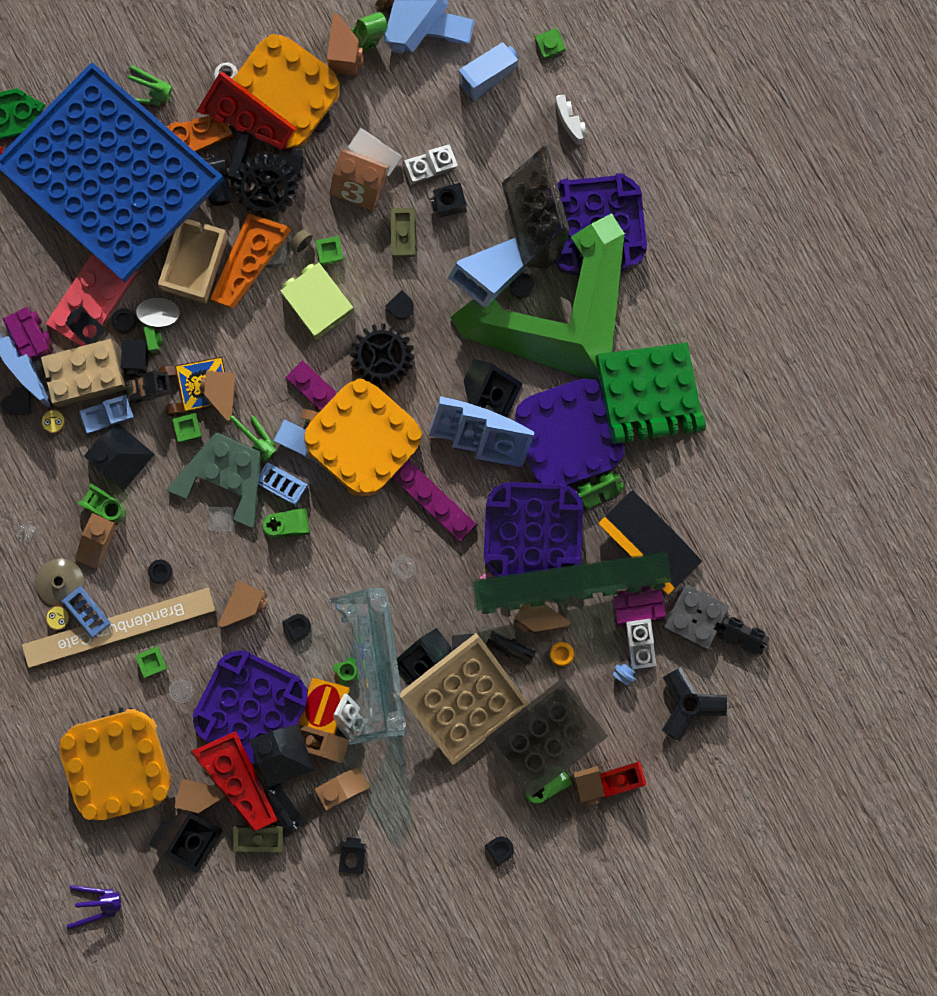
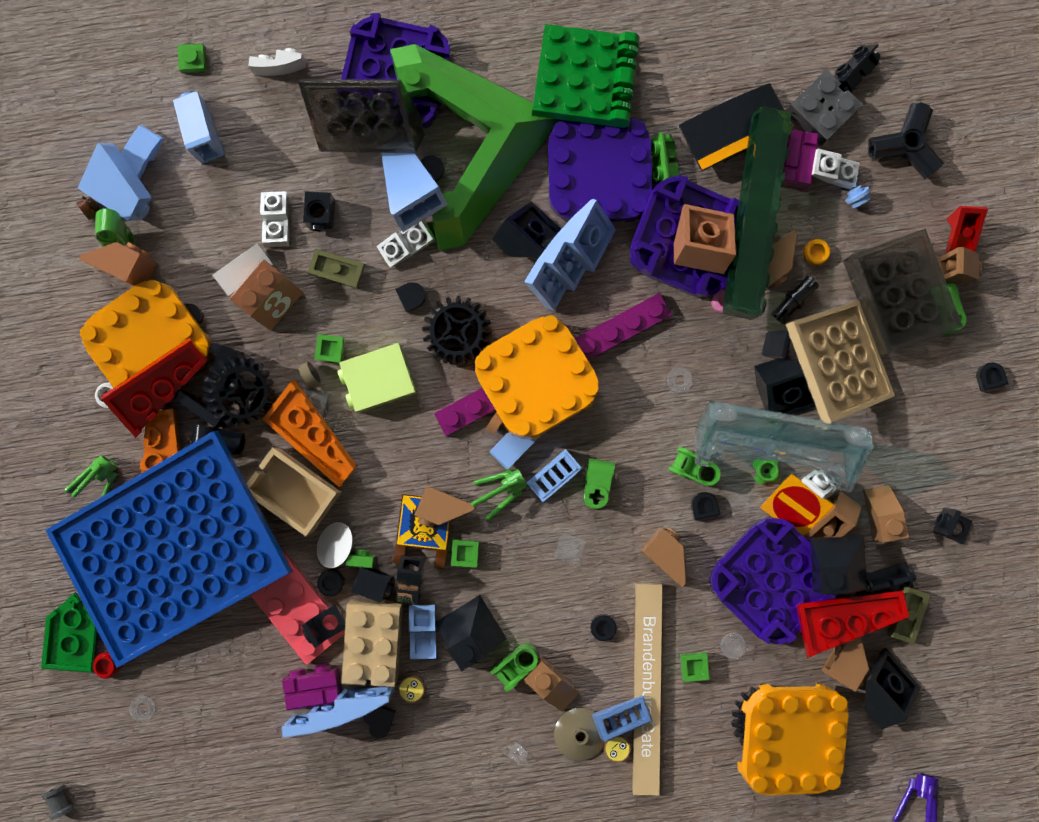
camera: 70 degrees left, 5 degrees up
(228, 466) = (519, 523): sand green wing -> none
(325, 593) = (690, 470): none -> bright green piece
(437, 279) = (406, 244): none -> white slope
(532, 542) = (705, 239): none -> nougat slope

